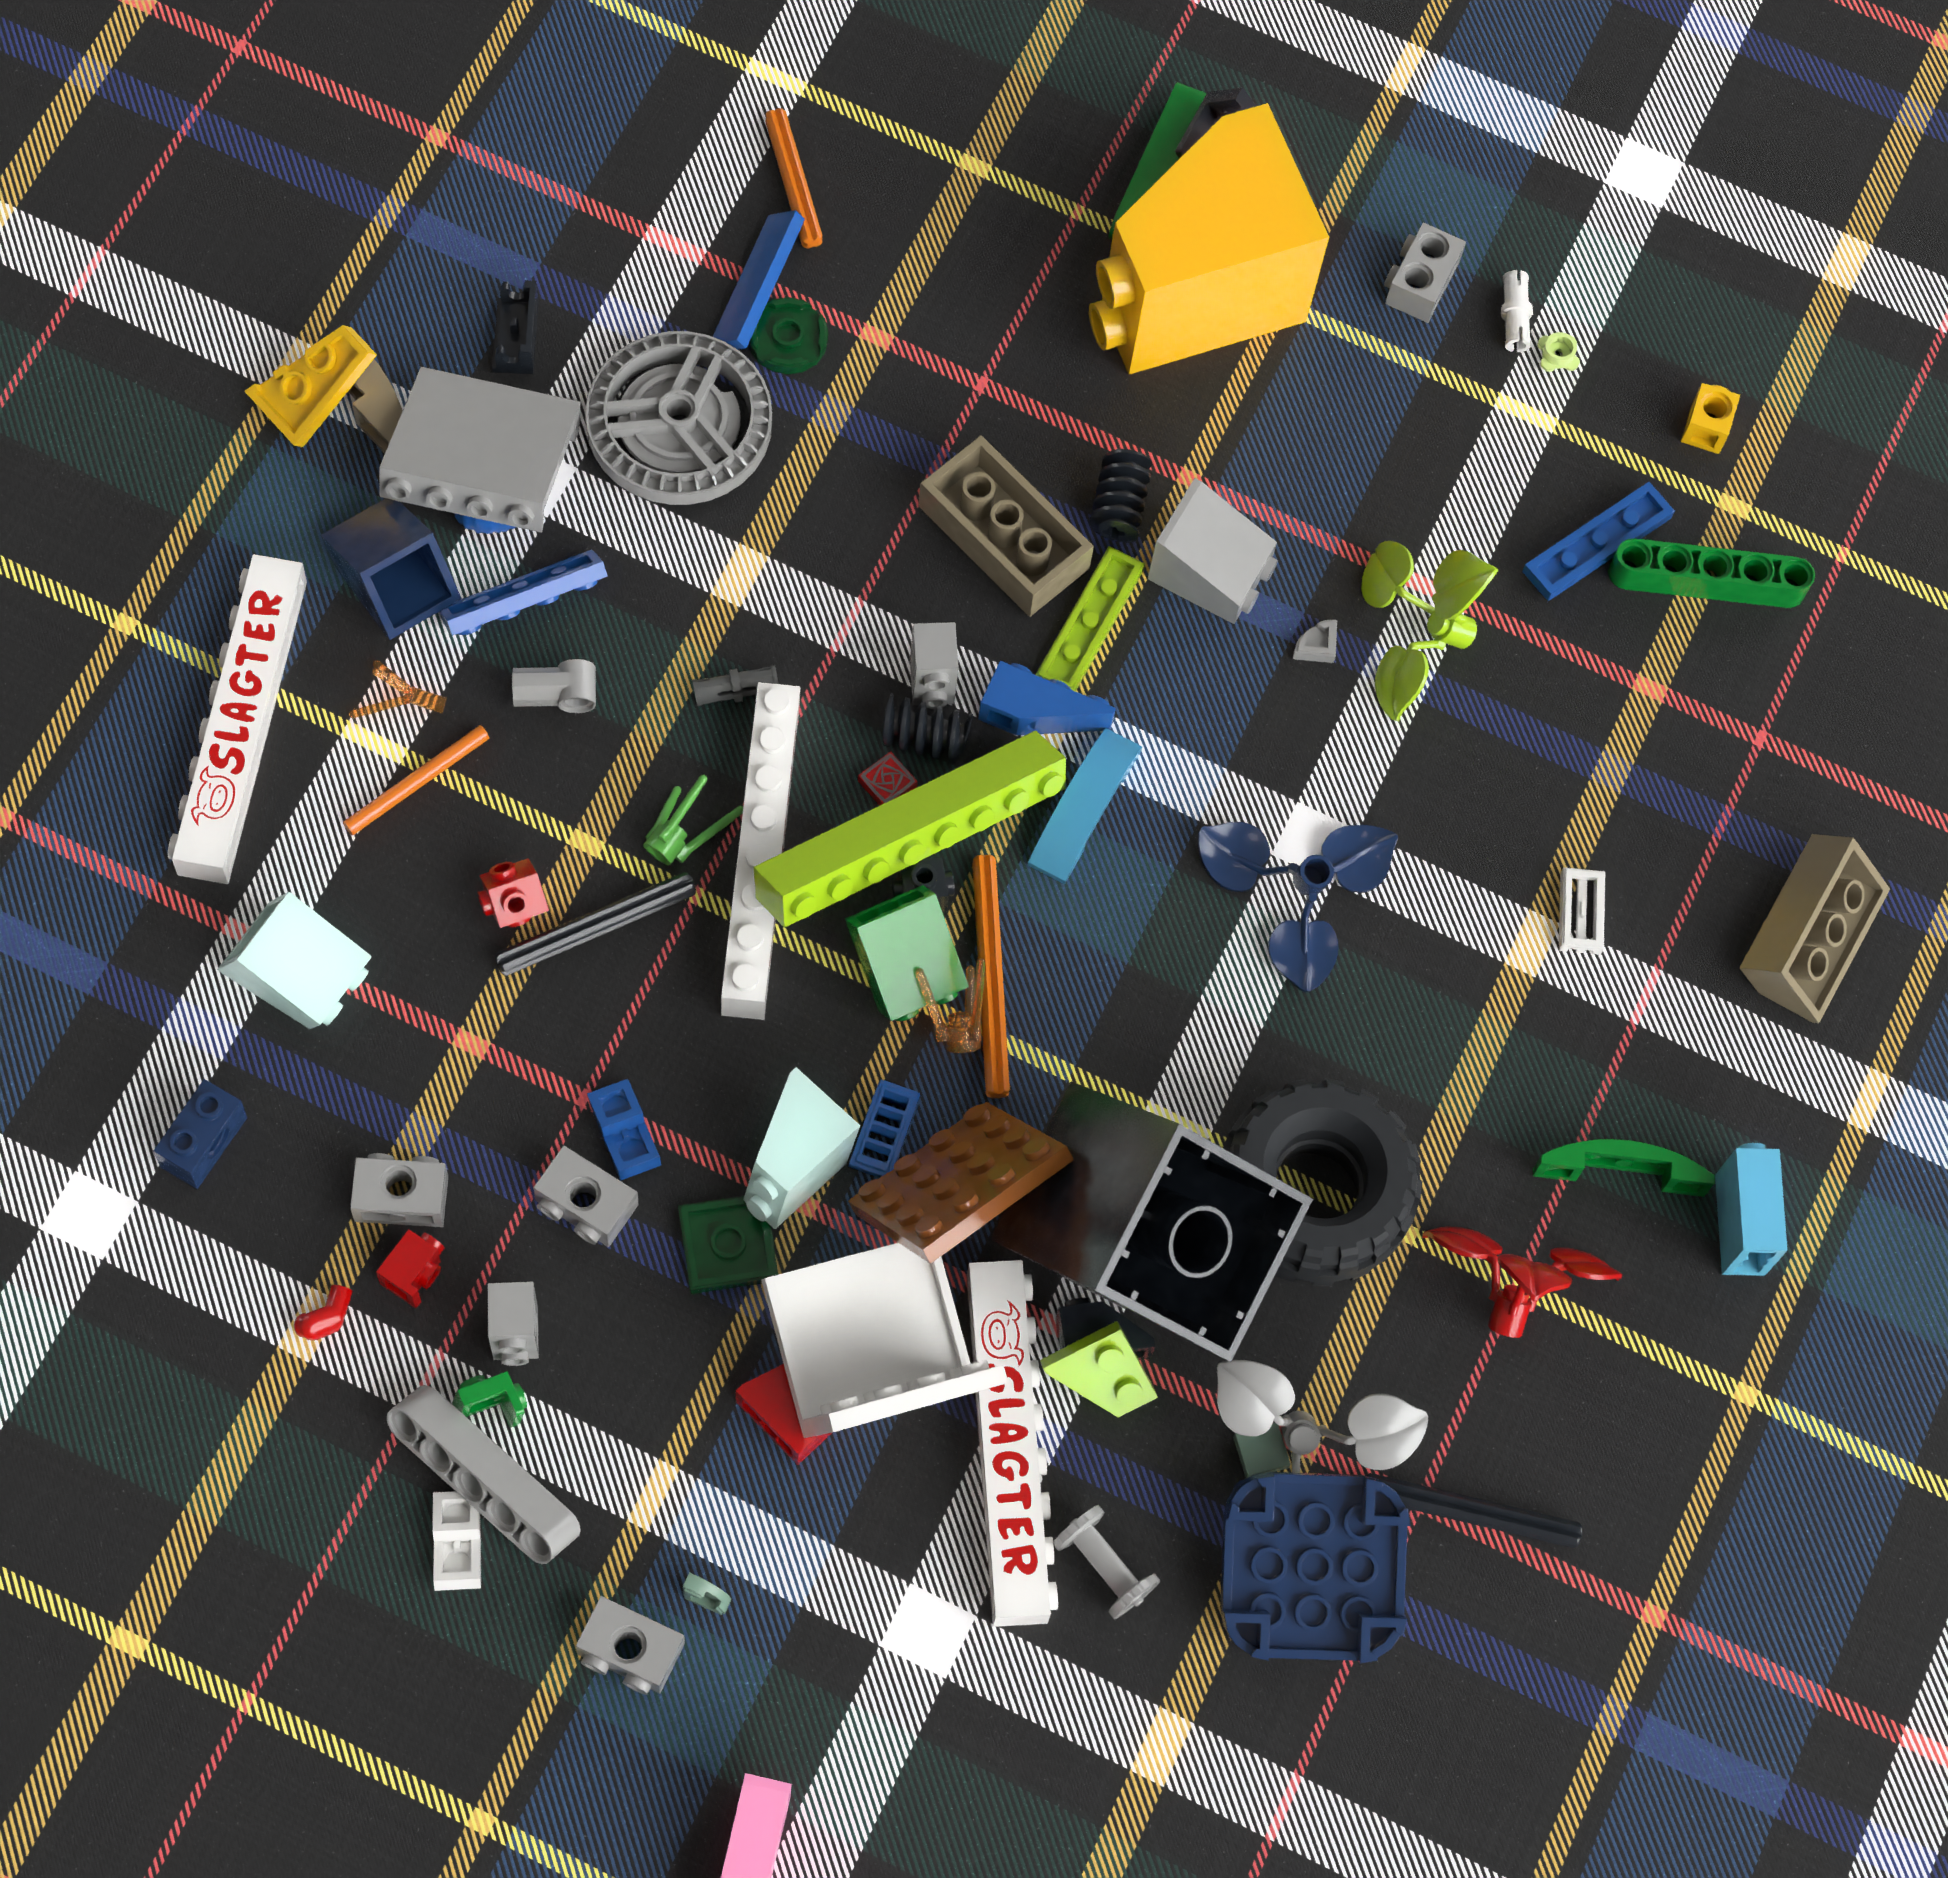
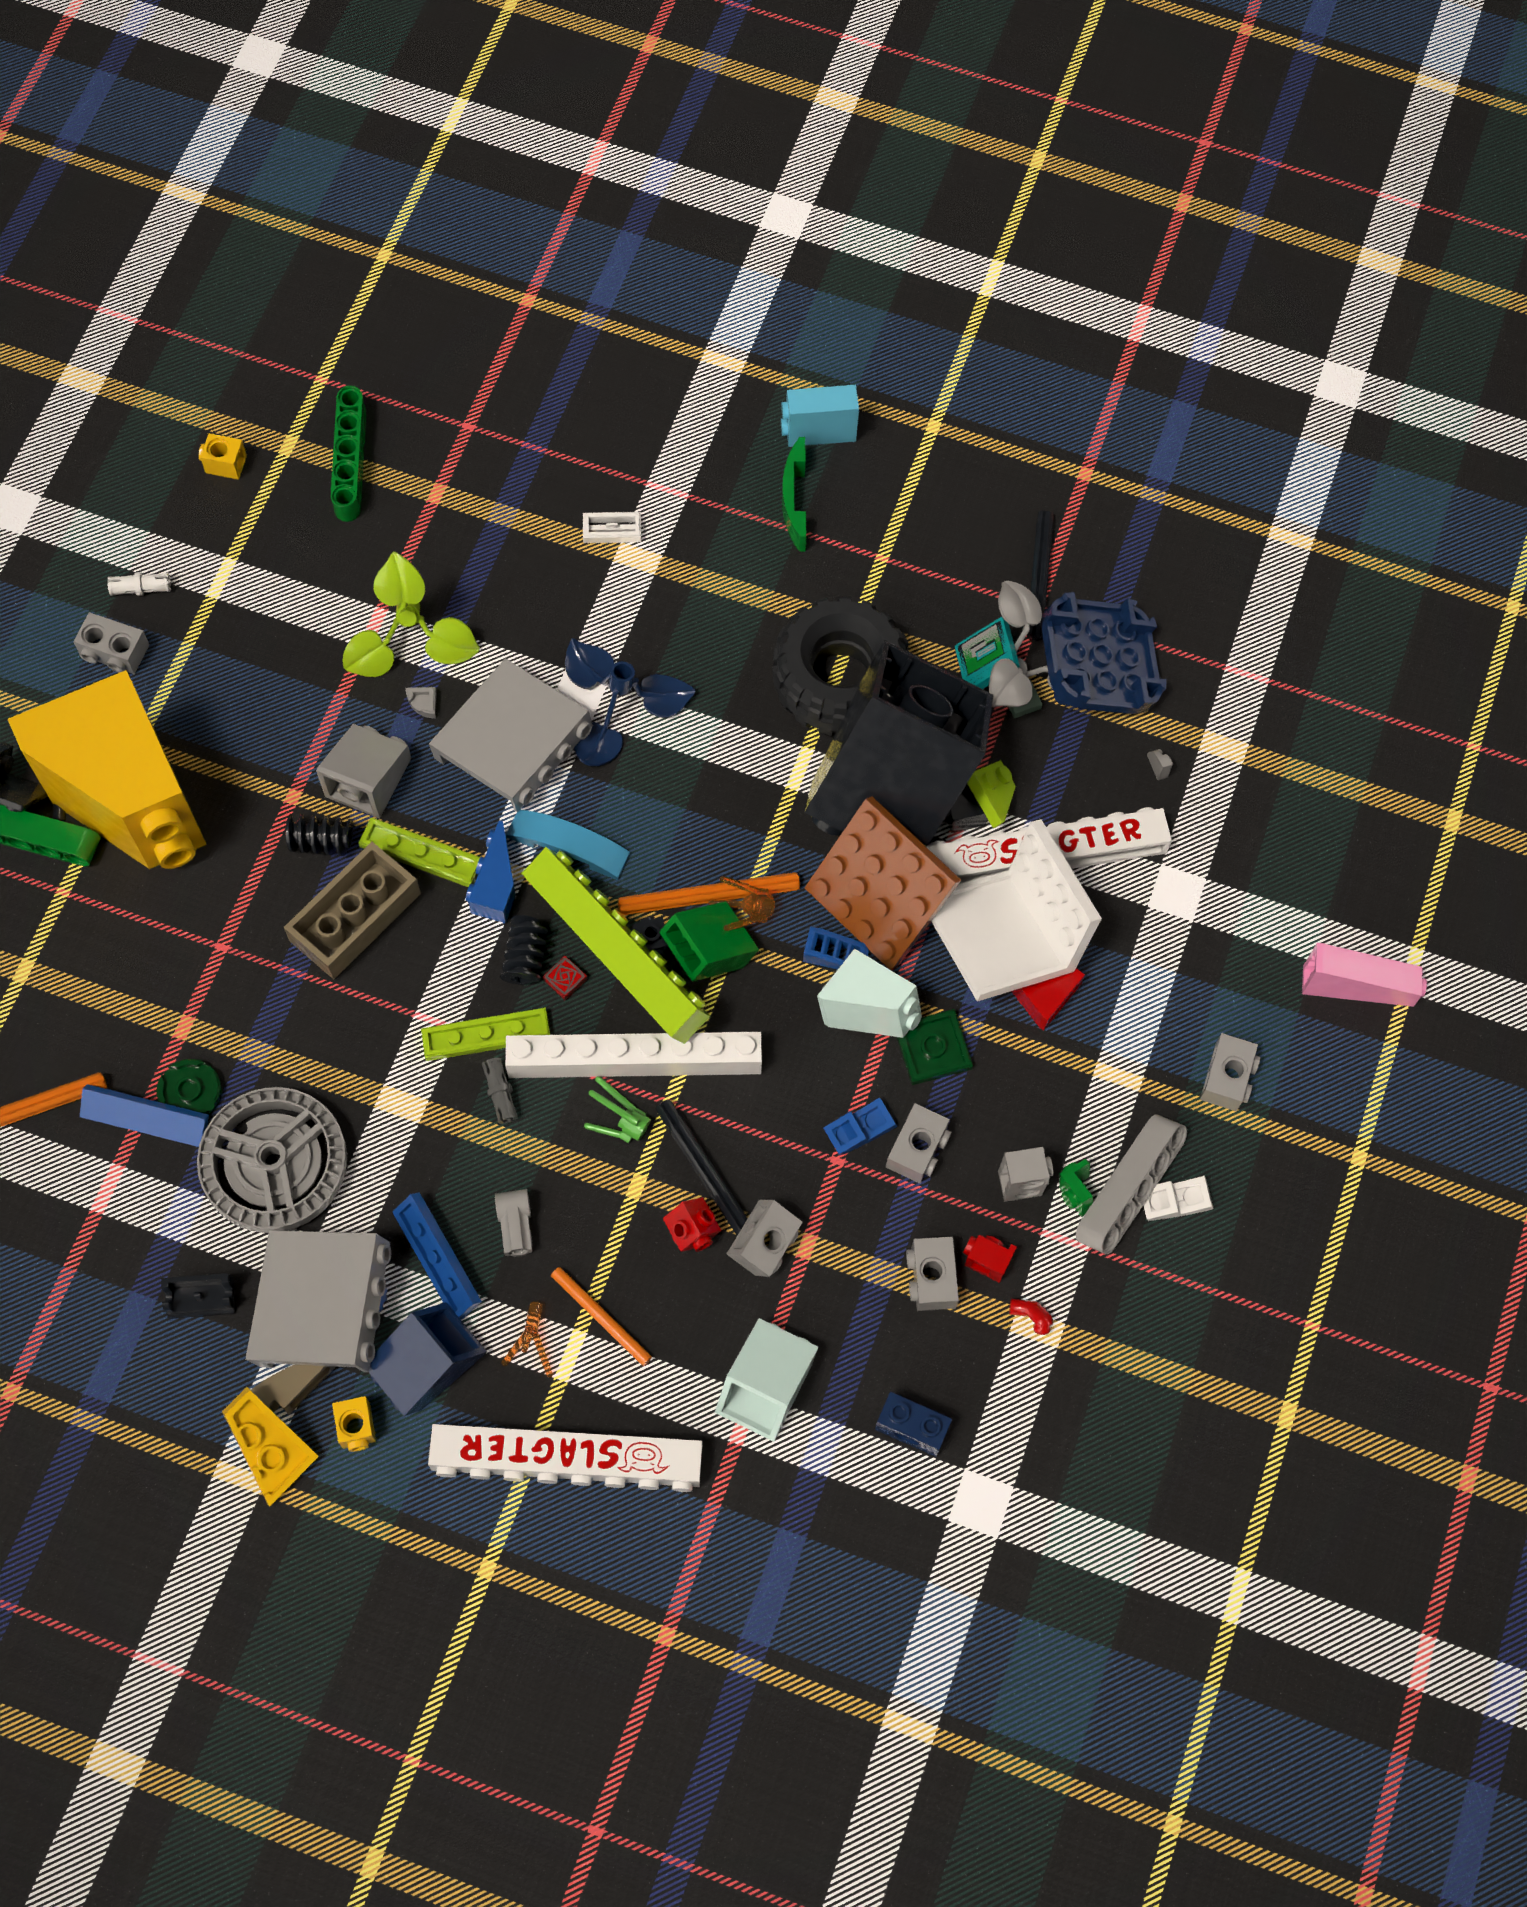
camera: 90 degrees left, 0 degrees up
(333, 499) = (345, 1412): none -> yellow brick
(503, 982) = (749, 1245): none -> light grey brick
(705, 1594) = (1183, 1032): sand green tile -> none
(820, 679) = (481, 1033): none -> lime tile
(934, 664) = (477, 946): light grey brick -> none
(1106, 1562) = (1135, 765): light grey hose -> none
(1136, 1635) = (1160, 763): none -> light grey tile
(1247, 739) = (512, 733): none -> light grey panel
(1323, 1393) = (983, 649): none -> tile
(1533, 1278) = (903, 518): red plant -> none
(1562, 343) = (169, 549): yellowish green plate -> none
(1597, 541) = (328, 524): blue plate -> none
(1816, 926) = (608, 388): dark tan slope -> none

